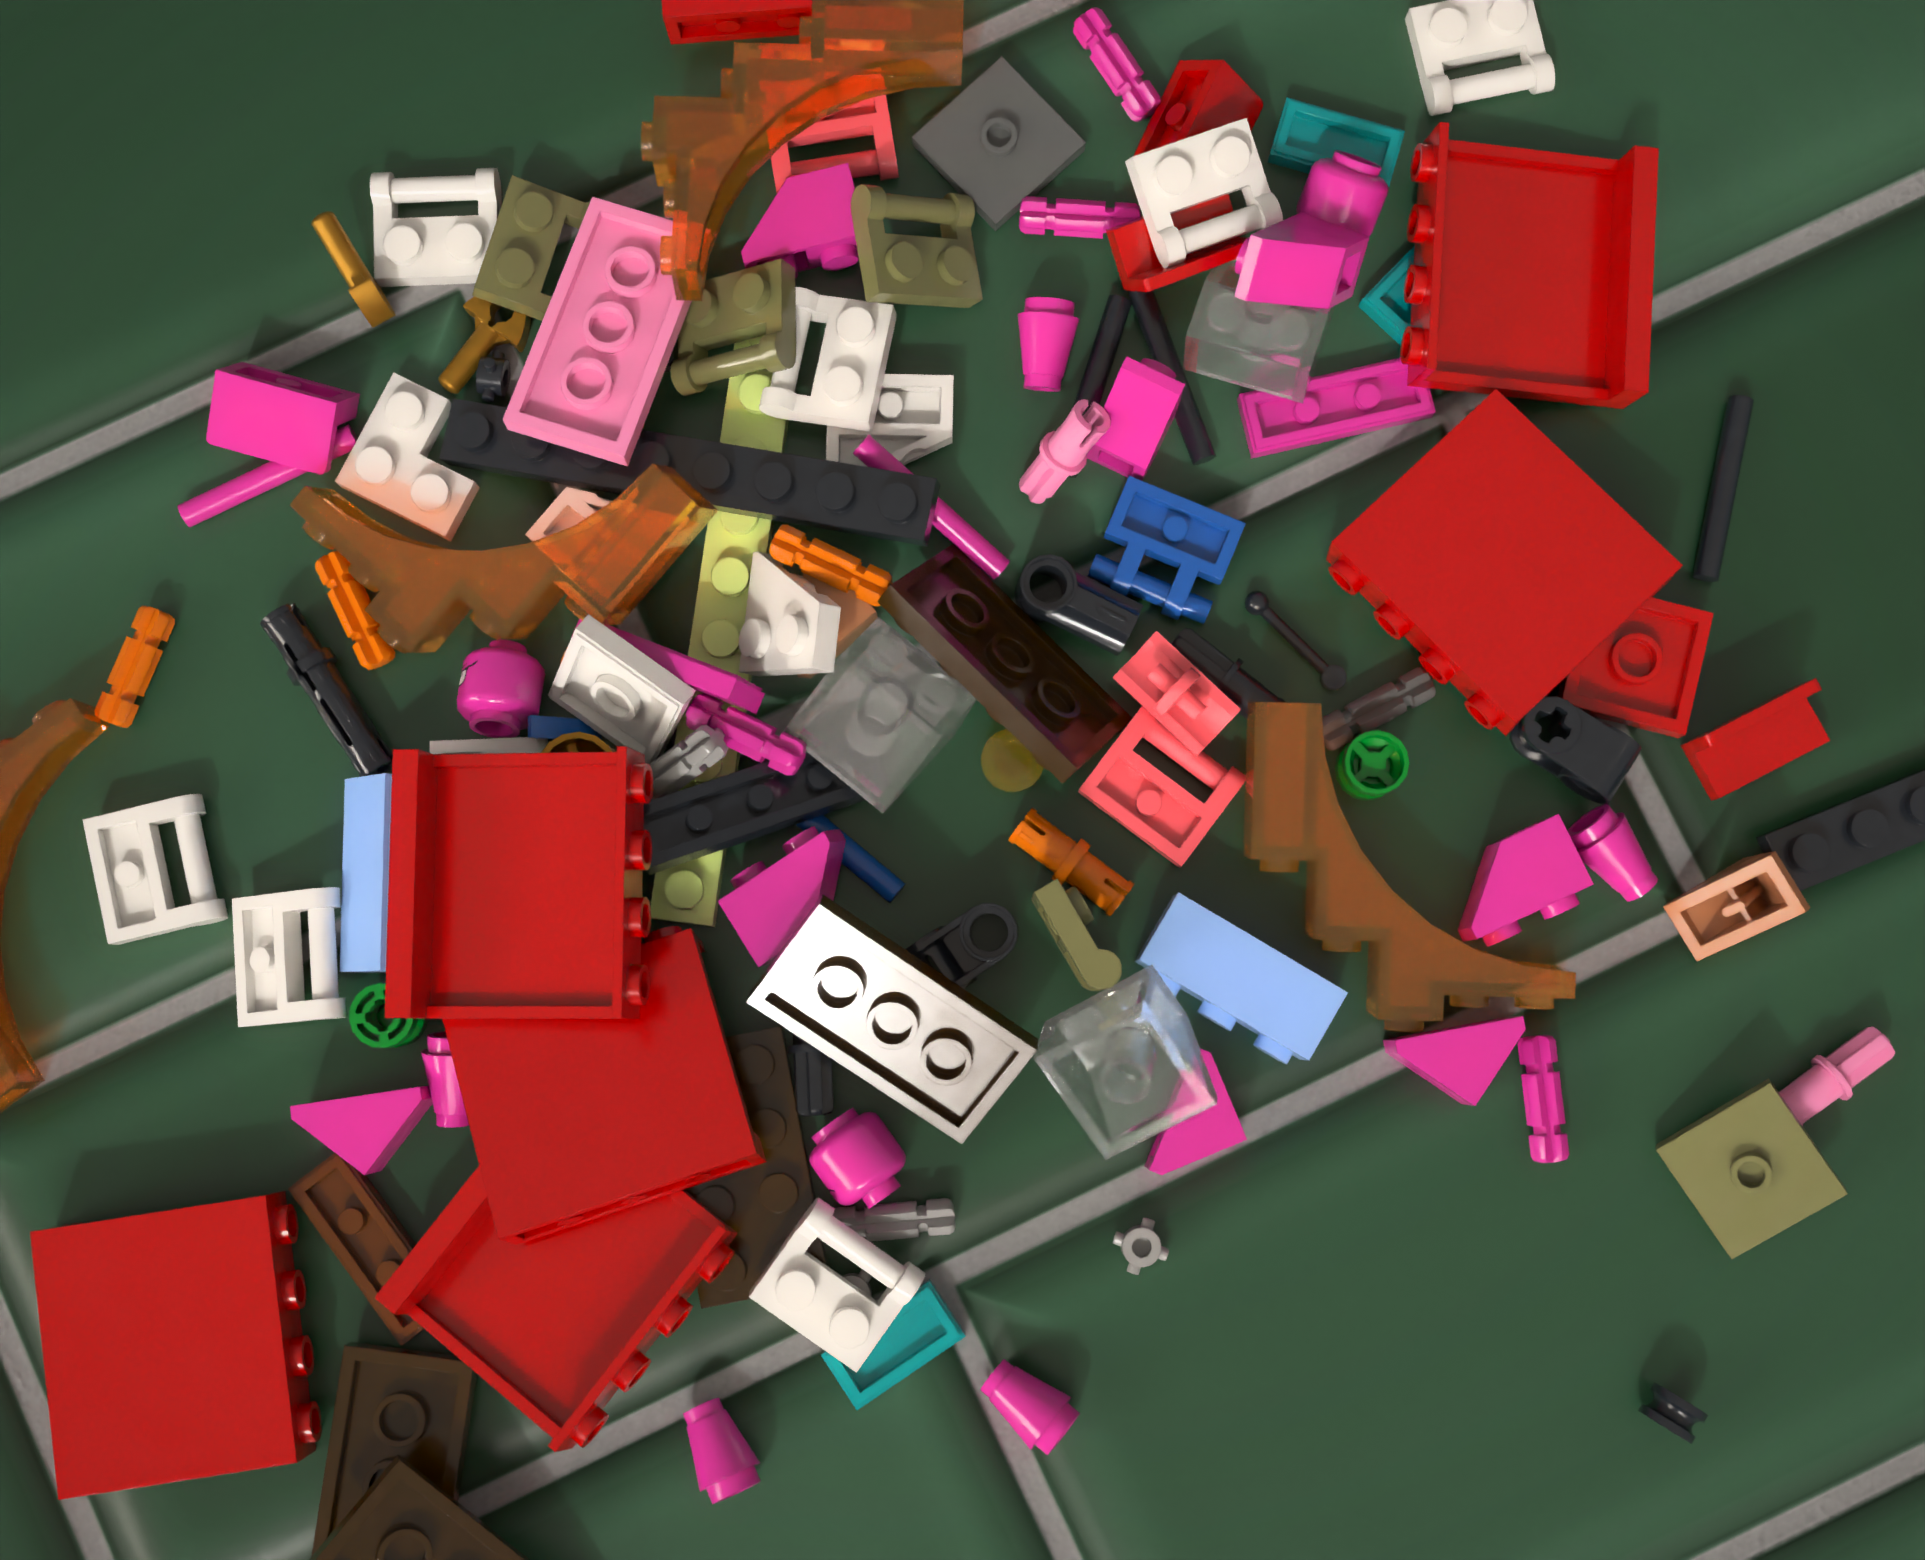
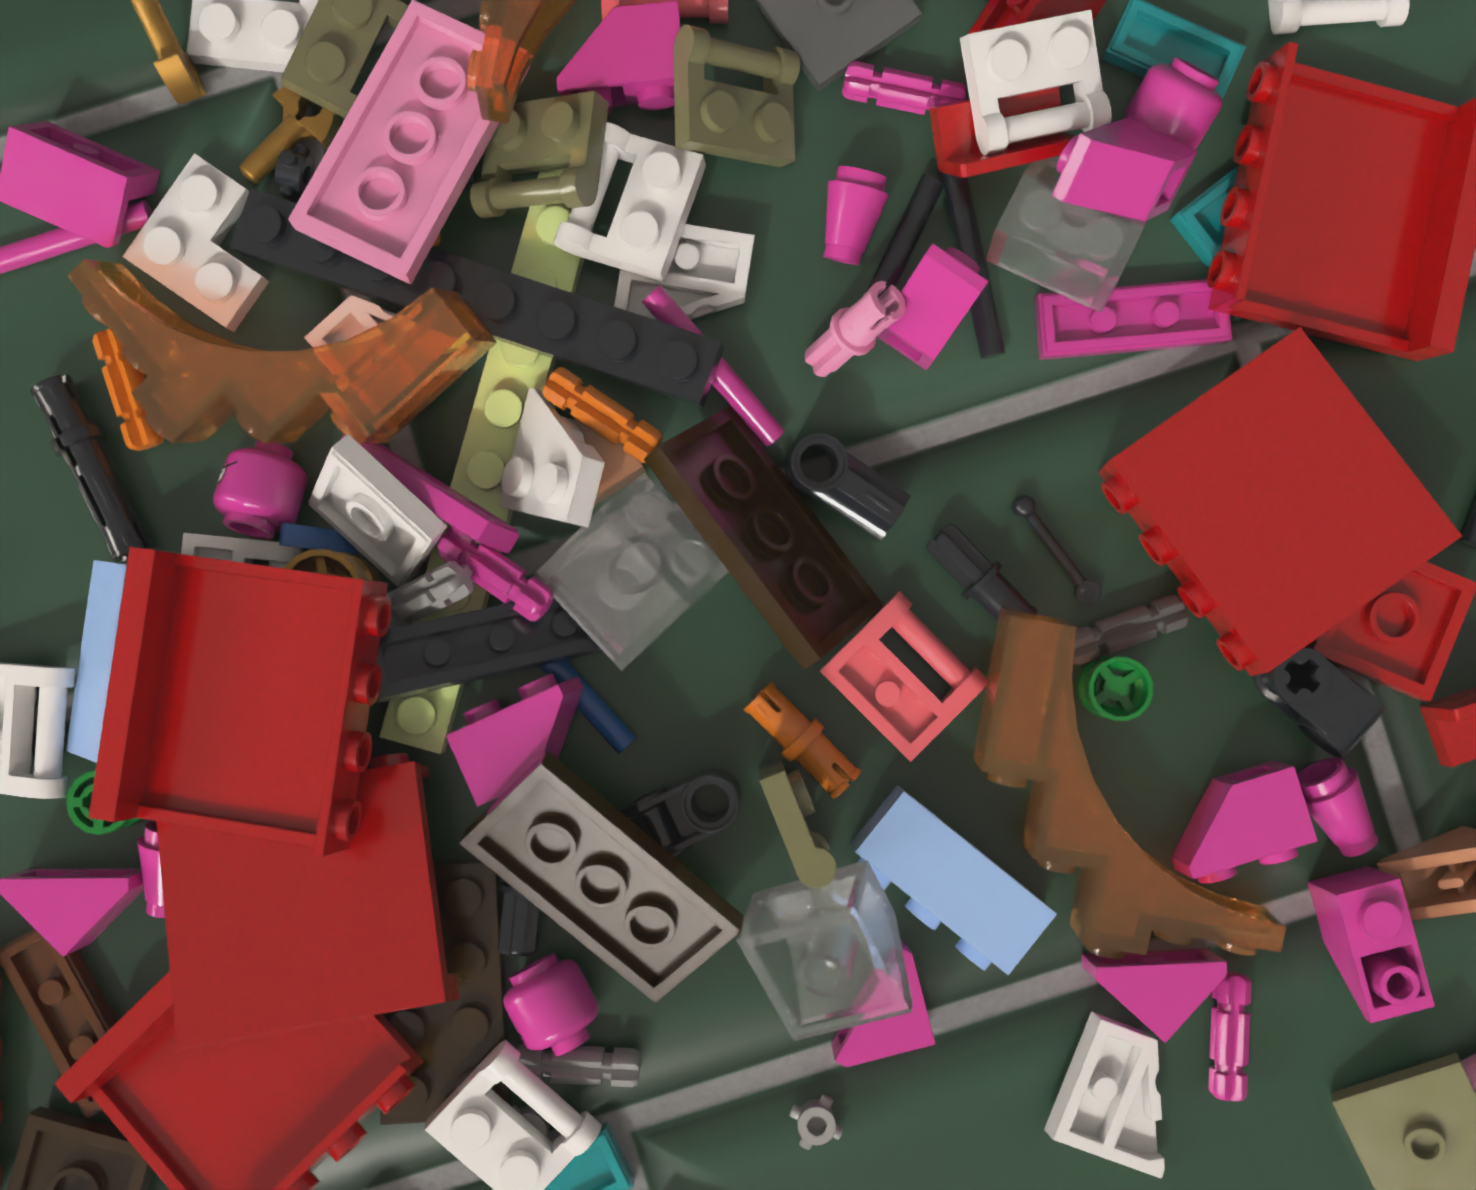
camera: 10 degrees right, 5 degrees up
(1009, 763) = (752, 635): clear yellow plate -> none
(1172, 532) = (953, 426): blue plate -> none
(1176, 693) = (931, 590): coral hips -> none
(1433, 1175) = (1111, 1096): none -> white wing
(1666, 979) = (1372, 941): none -> dark pink slope

